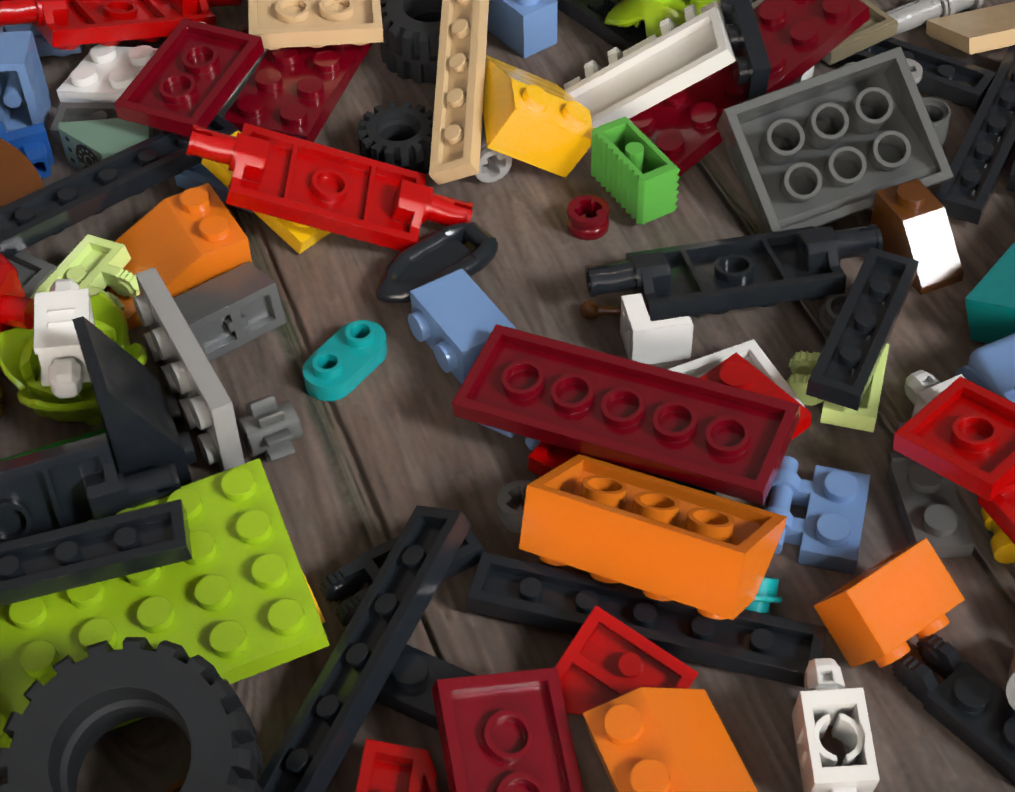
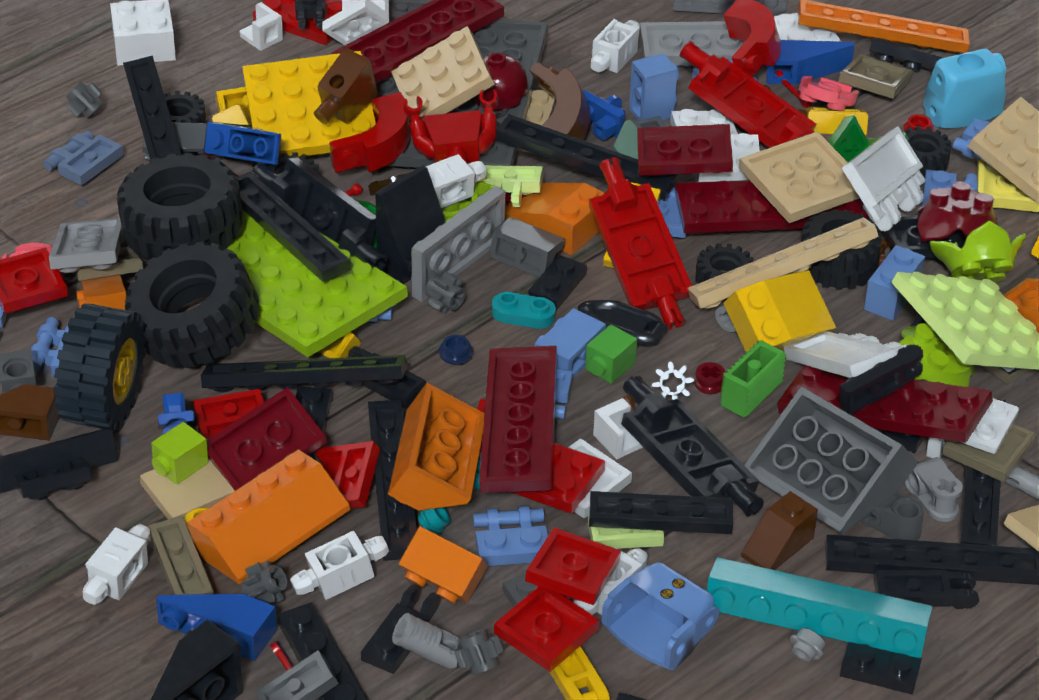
camera: 65 degrees right, 5 degrees down
(311, 306) = (559, 280): none -> black plate
(392, 459) = (455, 350): none -> dark blue plate
(507, 285) = (611, 354): none -> bright green brick
(594, 243) = (679, 374): none -> gear

